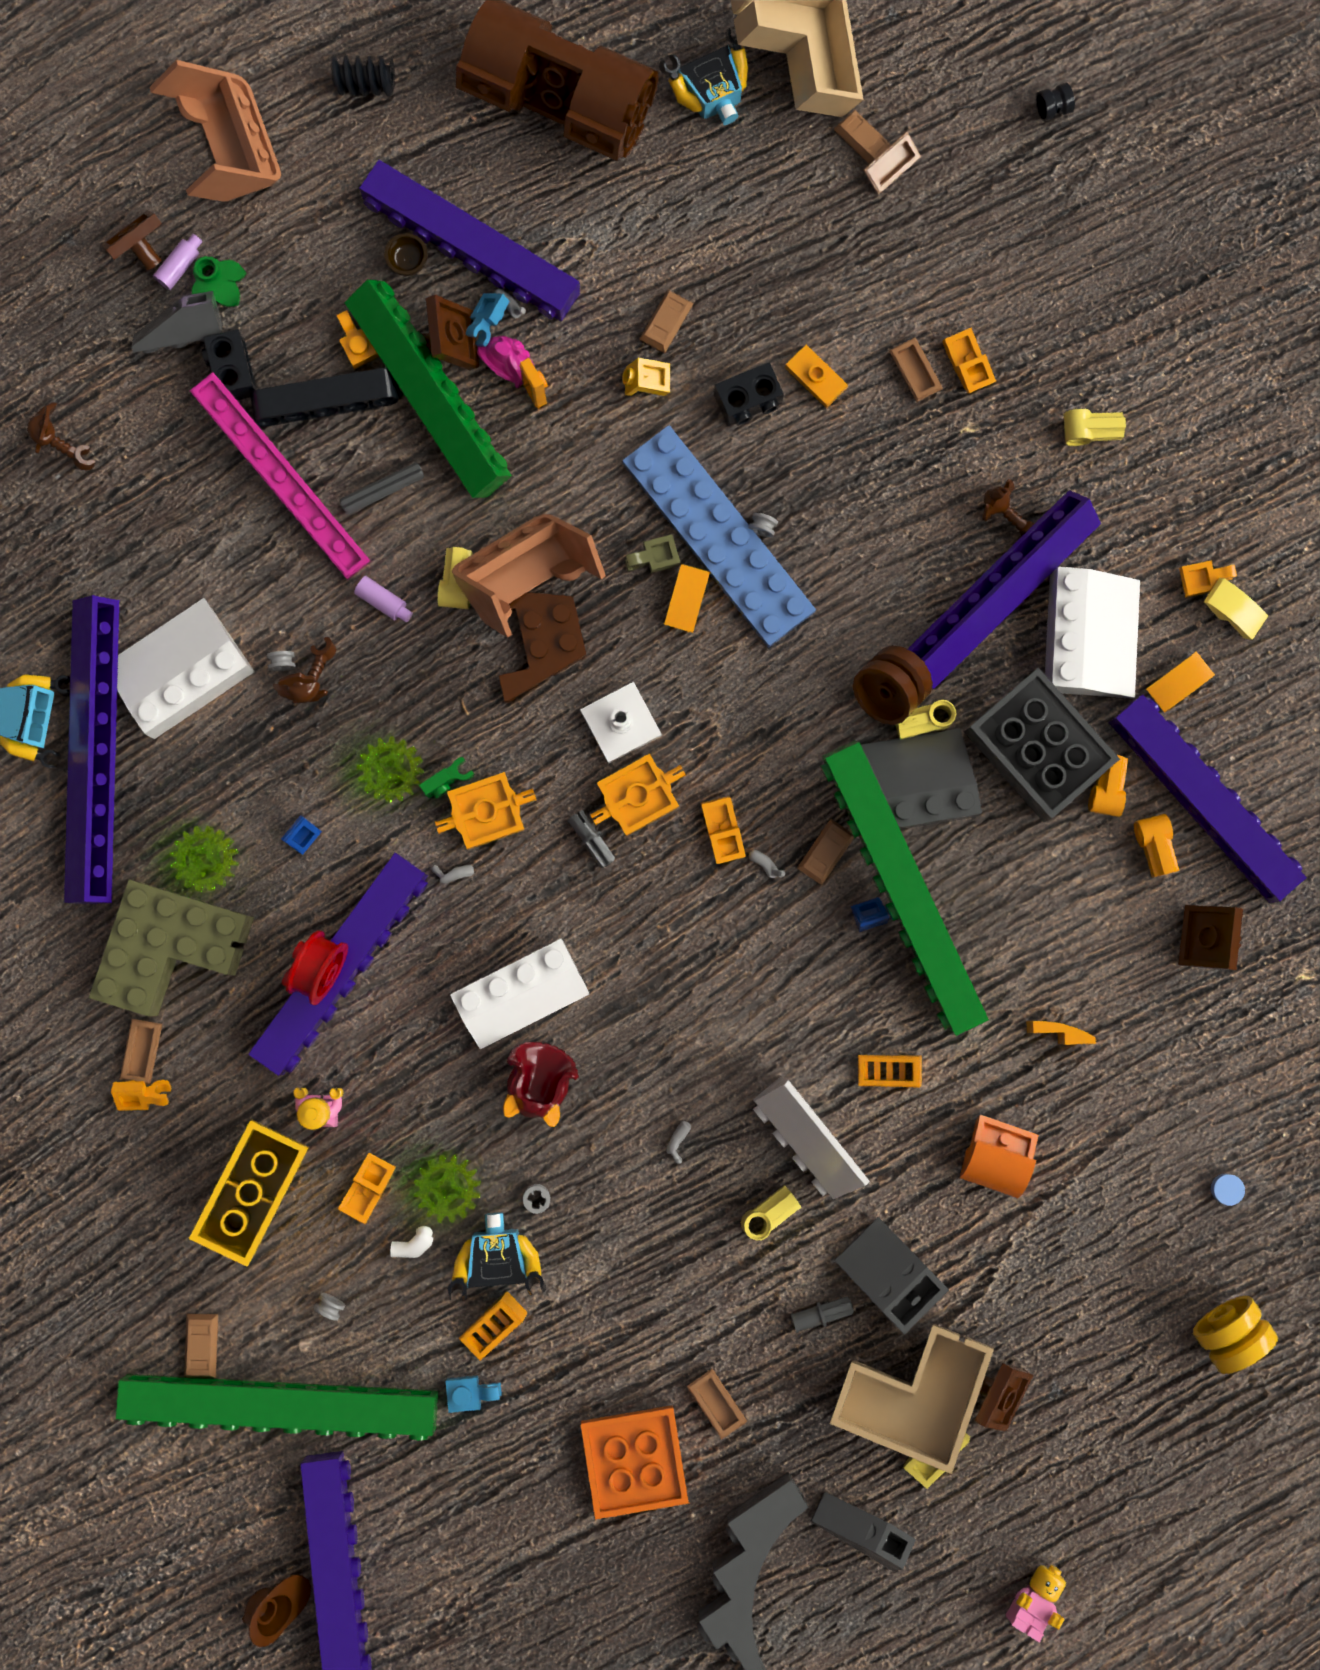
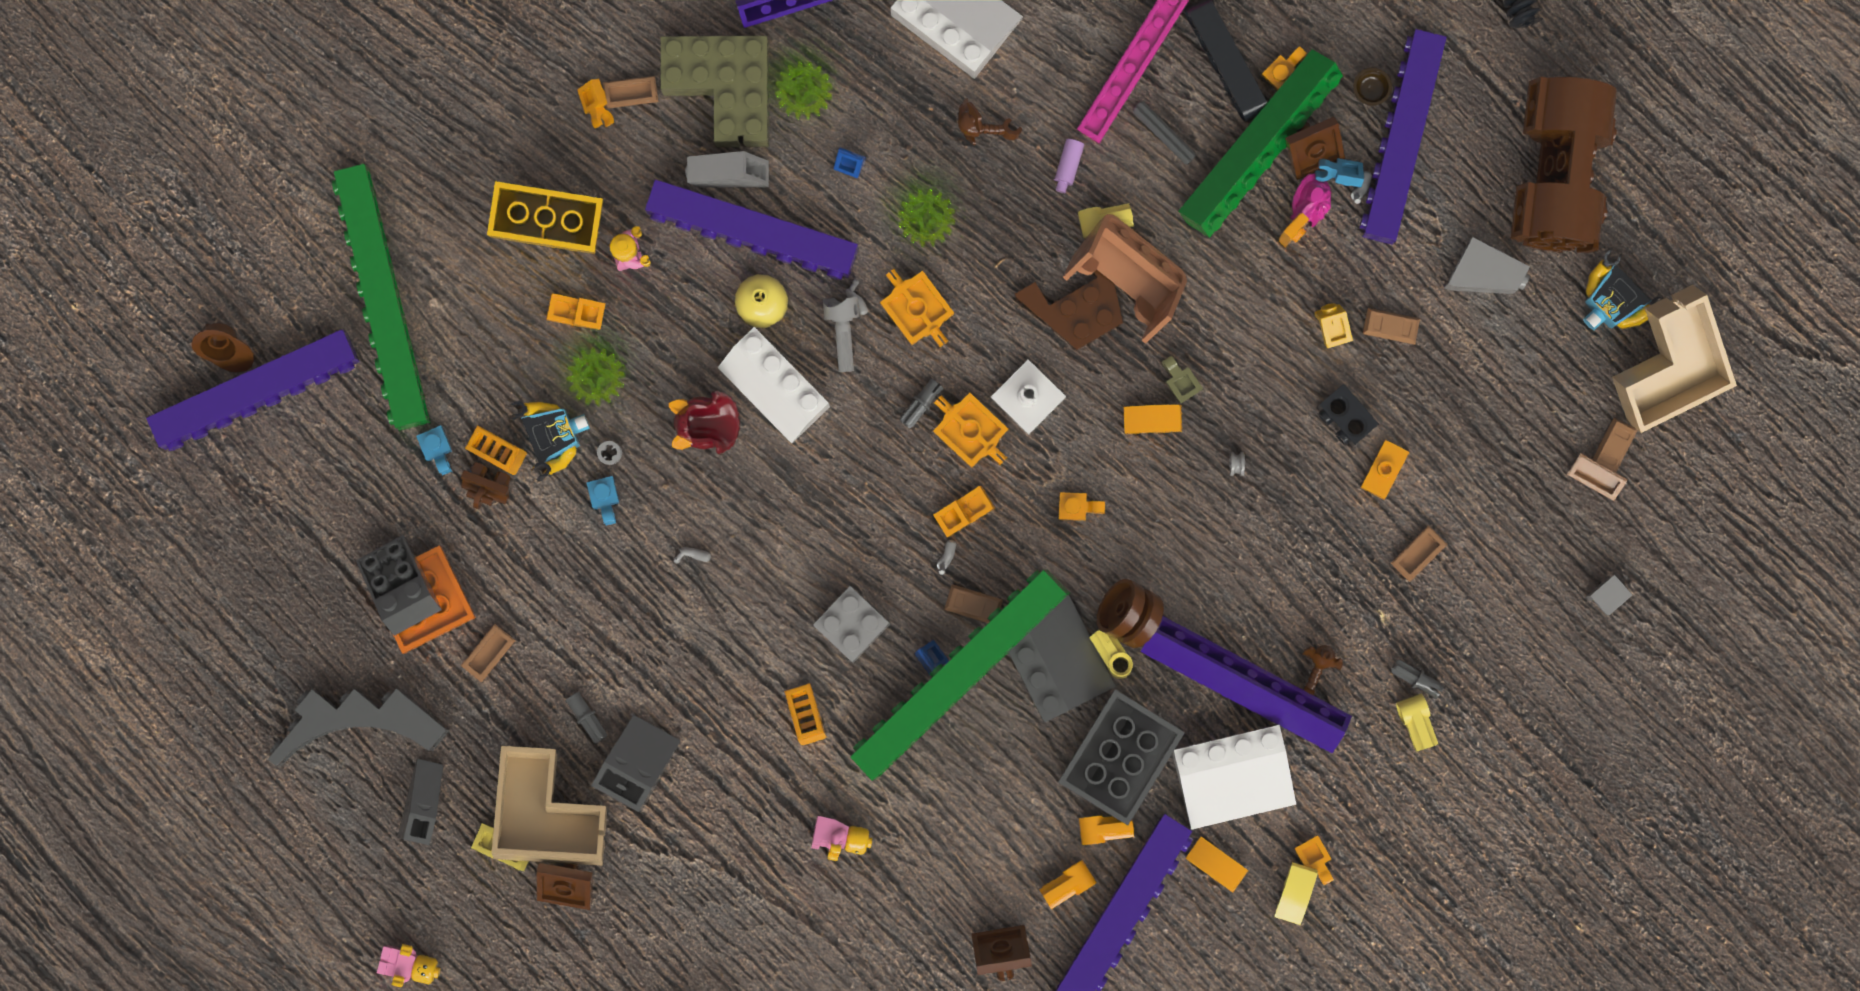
camera: 85 degrees right, 0 degrees up
(201, 1346) = (409, 219): medium nougat tile -> none
(264, 970) = (727, 170): none -> light grey slope
(281, 661) = (989, 98): light grey bush -> none
(315, 967) = (741, 210): red wheel -> none
(329, 1306) = (471, 312): light grey bush -> none
(416, 1246) = (541, 367): white arm -> none
(436, 975) = (770, 309): none -> light yellow cylinder
(439, 783) = (927, 262): green plate -> none
(467, 894) = (841, 314): none -> light grey piece
(520, 1360) = (483, 489): none -> reddish brown hips
(580, 1220) = (604, 495): none -> dark azure plate
(612, 1486) = (398, 585): none -> dark grey slope
(639, 202) = (1487, 271): none -> light grey slope
(718, 536) = (1216, 429): medium blue plate -> none
(755, 709) = (1075, 506): none -> light orange plate
(773, 1212) = (658, 650): light yellow piece -> none
(809, 1138) = (727, 659): white slope -> none
(810, 990) = (851, 624): none -> light grey brick
(968, 362) = (1442, 597): light orange slope -> none
(1000, 1157) = (761, 826): orange brick -> none
(1019, 189) = (1609, 595): none -> light grey panel
(1033, 1078) = (837, 835): none -> piece
(1046, 412) = (1417, 678): none -> dark grey axle
(1055, 102) = (1703, 605): black wheel -> none
(1066, 1034) = (881, 855): light orange slope -> none

